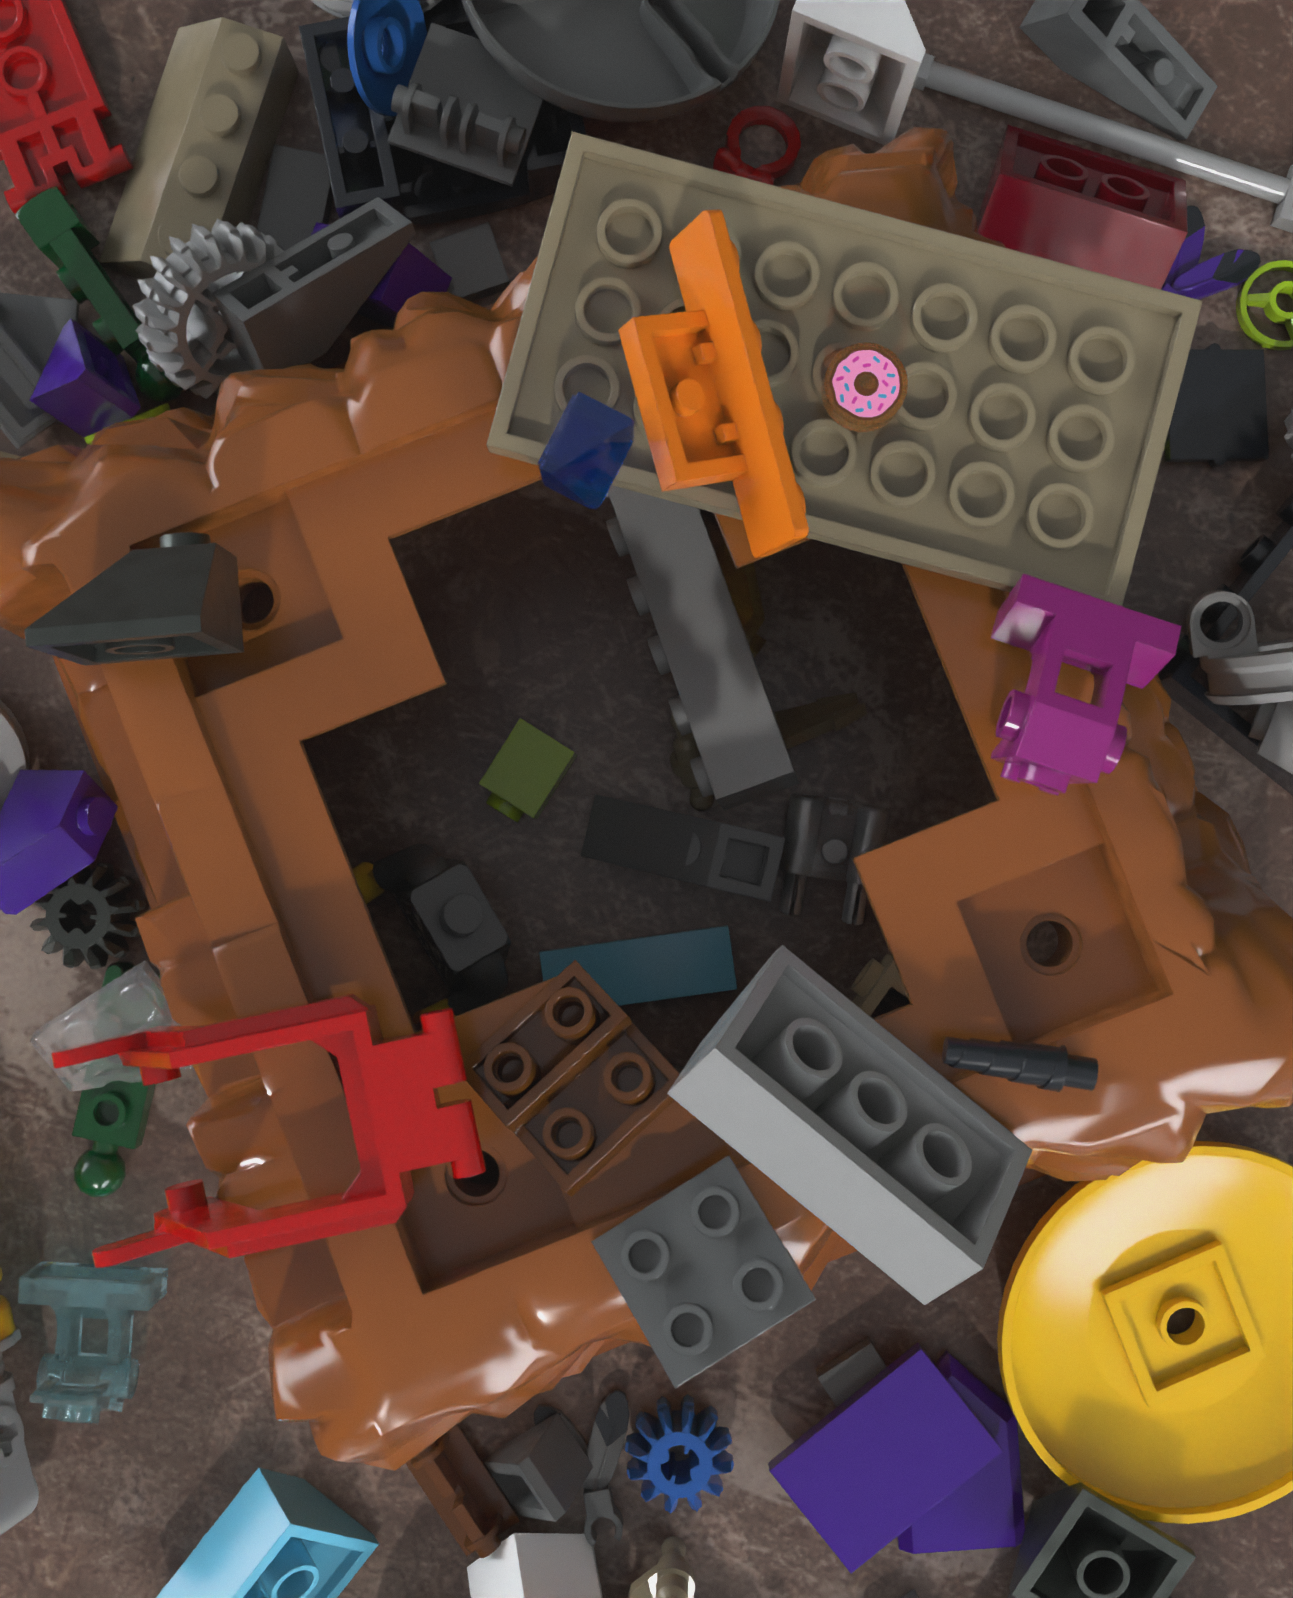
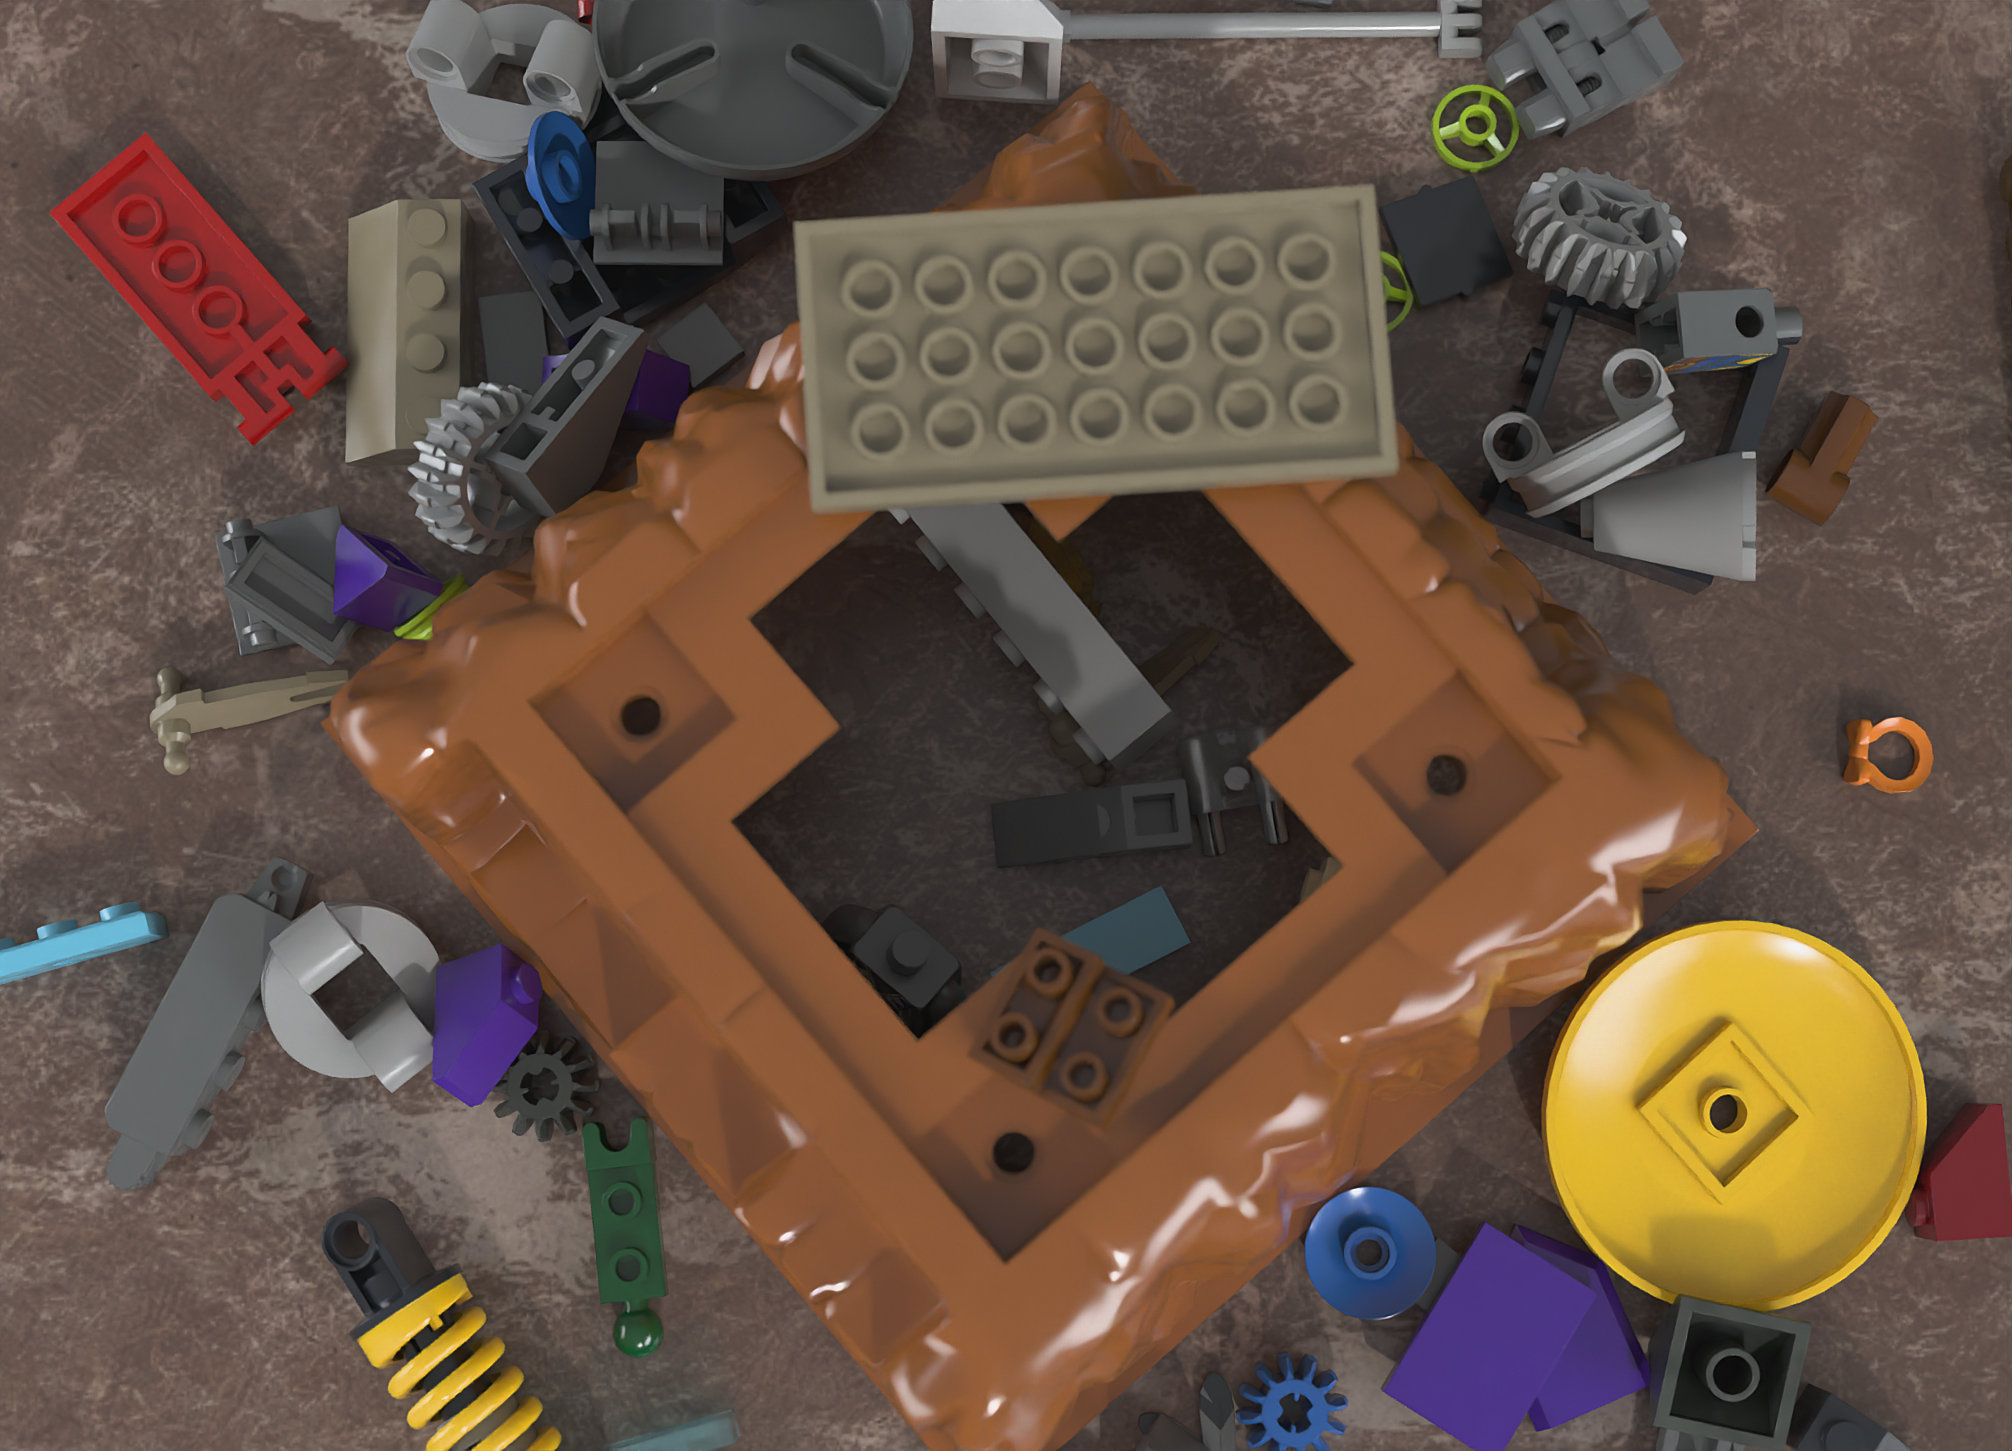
camera: 20 degrees left, 5 degrees down
(68, 242) = (310, 452): dark green plate -> none
(119, 1008) = (622, 1183): clear wing -> none
(149, 607) = (574, 743): pearl dark grey slope -> none
(390, 1106) = (921, 1101): red piece -> none
(526, 772) = (919, 804): lime brick -> none
(586, 450) = (901, 485): clear blue slope -> none
(703, 1271) = (1242, 1154): dark grey hinge -> none
(709, 391) = (988, 401): orange bracket -> none
(728, 158) = (948, 175): red piece -> none
(821, 1365) = (1404, 1262): none -> blue dish
(855, 1127) = (1327, 981): light grey slope -> none
(864, 387) = (1115, 353): tile -> none
(1021, 1063) = (1464, 877): black animal -> none
(1054, 737) = (1377, 590): magenta tile -> none
(1084, 208) = (1258, 109): dark red slope -> none
(1212, 275) = (1380, 135): dark purple piece -> none

